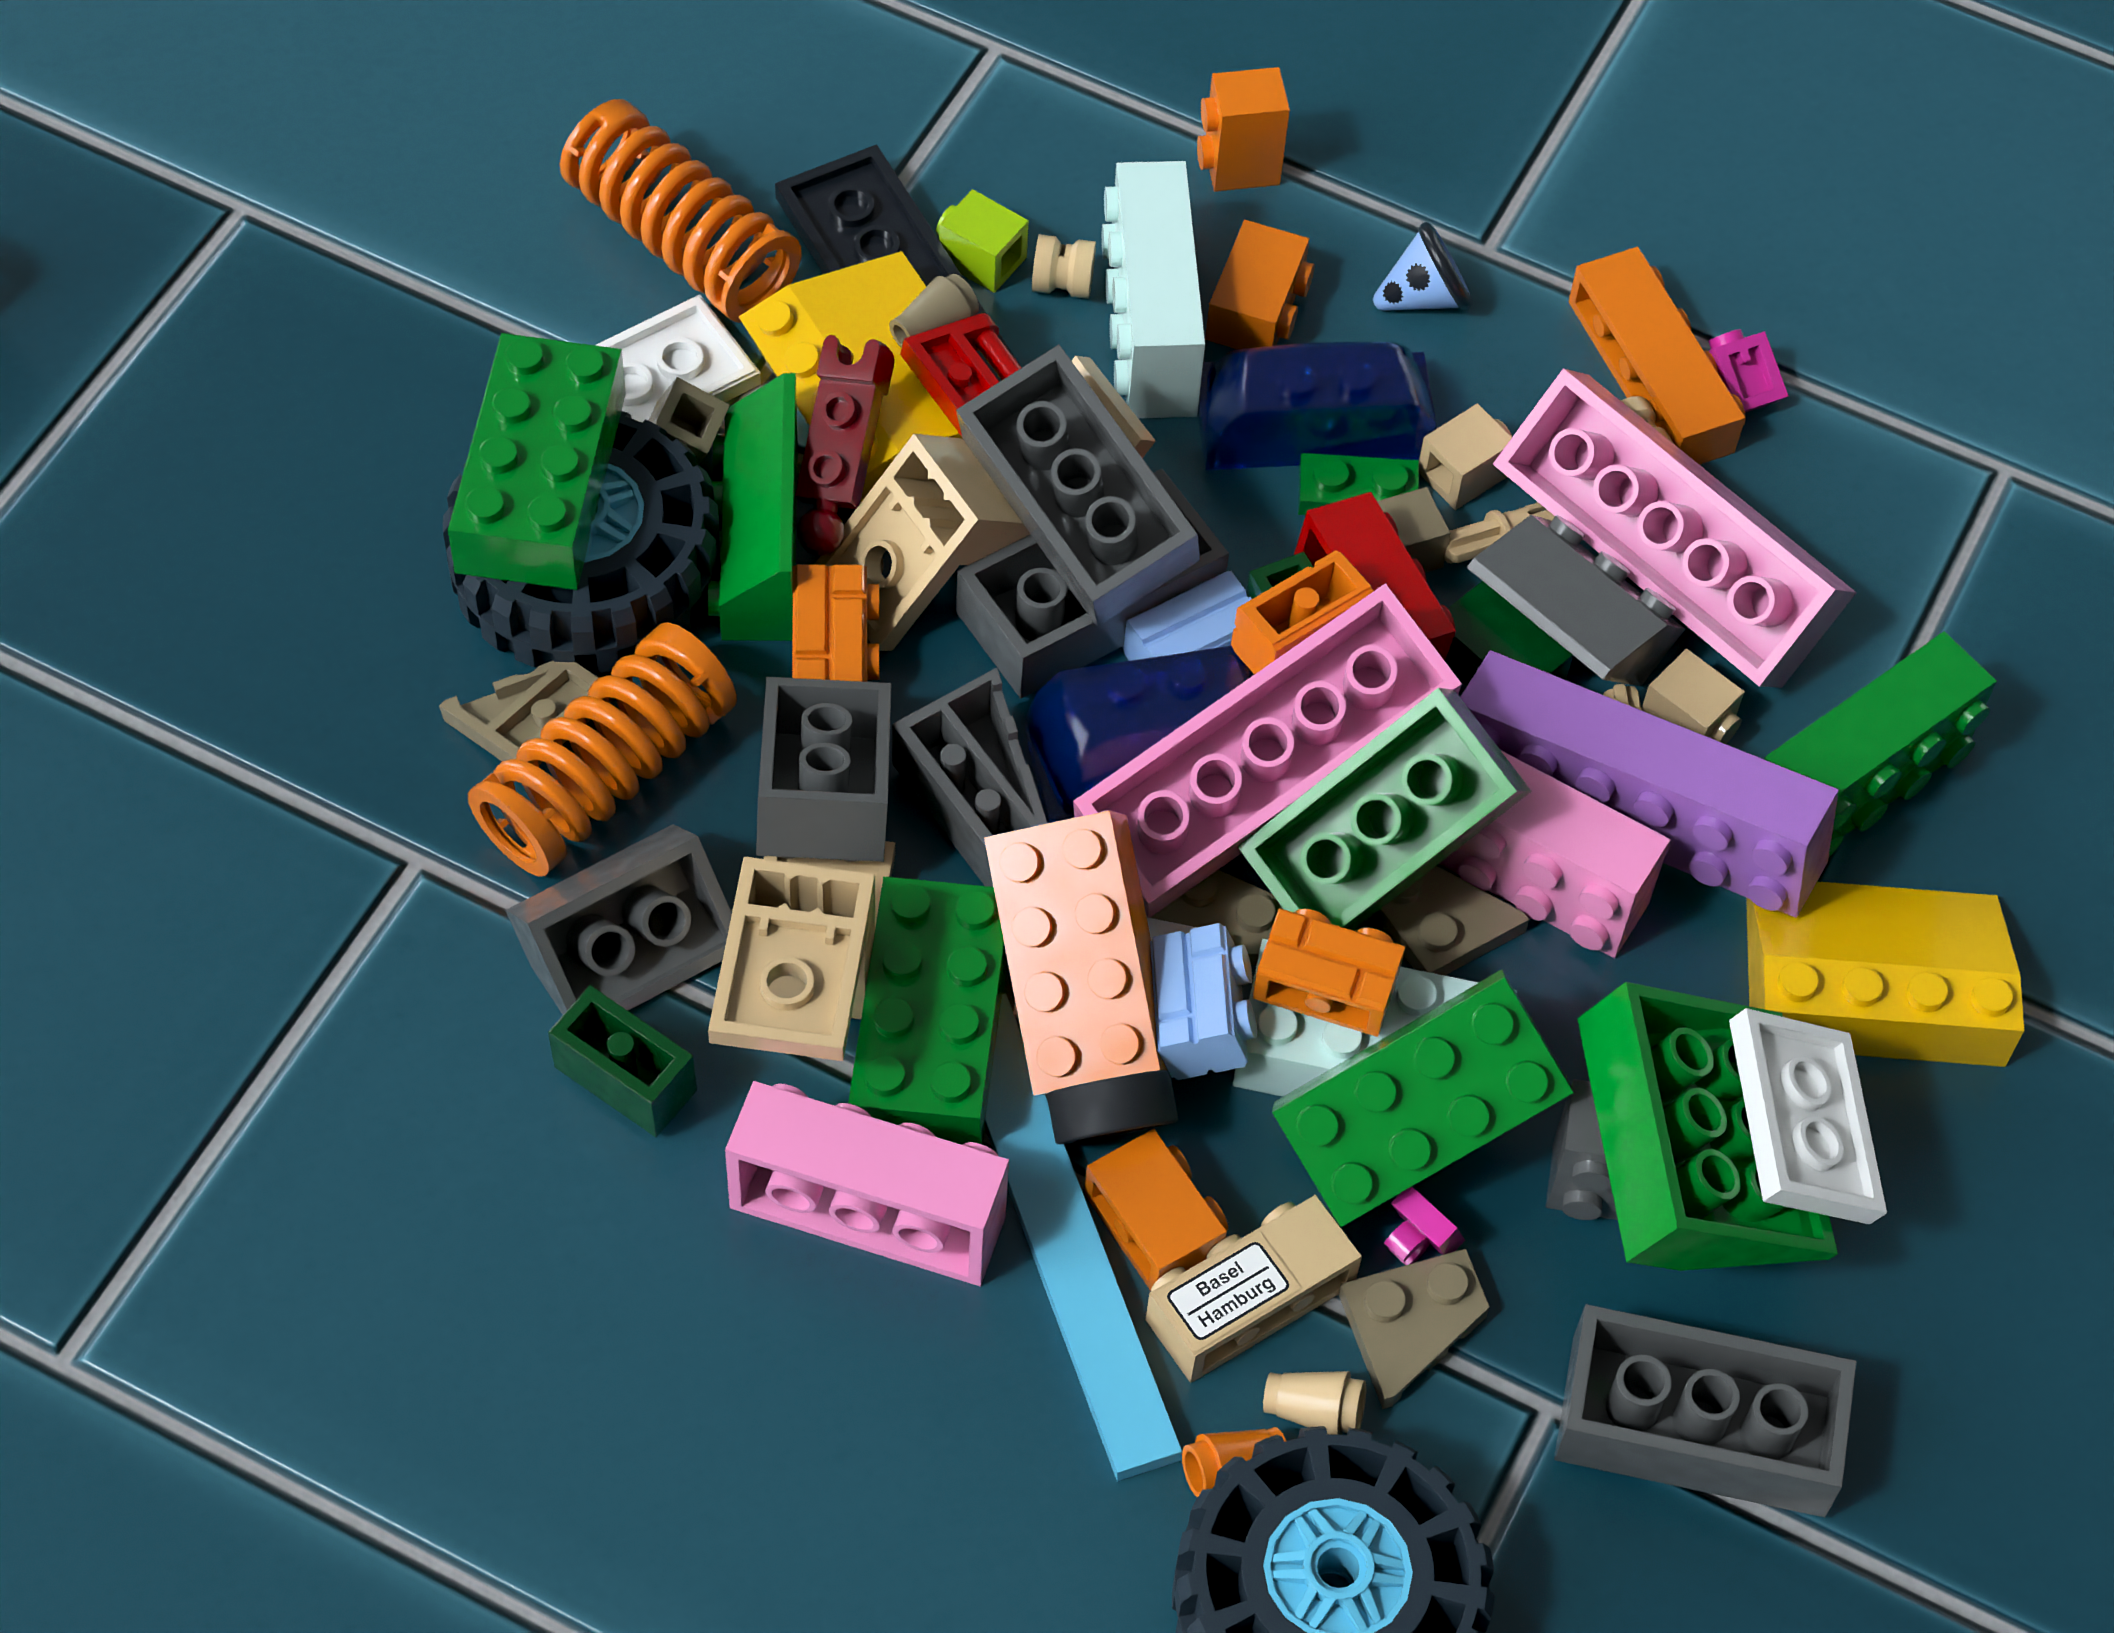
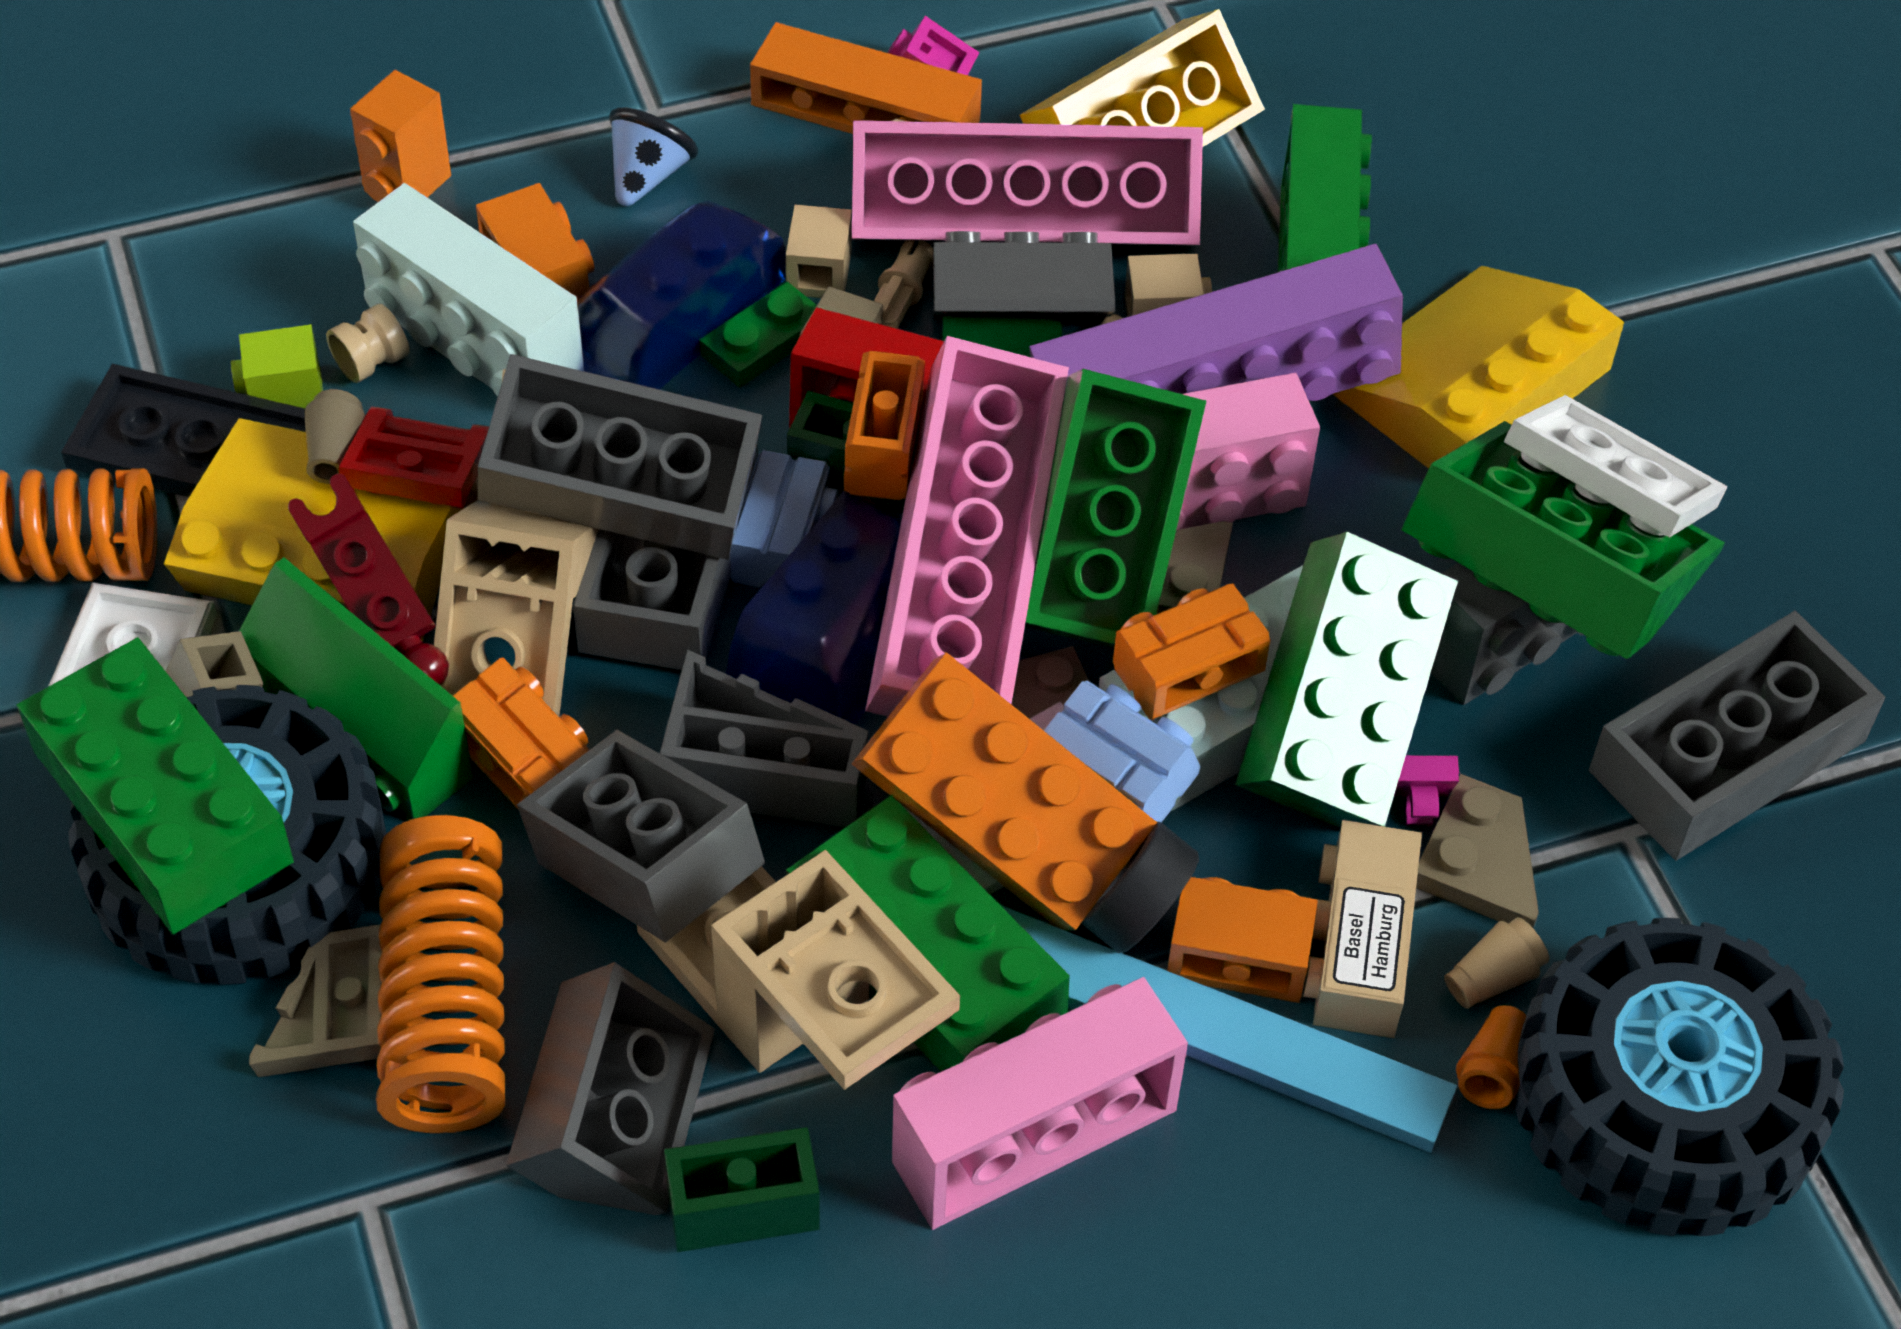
camera: 45 degrees left, 5 degrees down
(1892, 545) = (1172, 80): none -> yellow slope

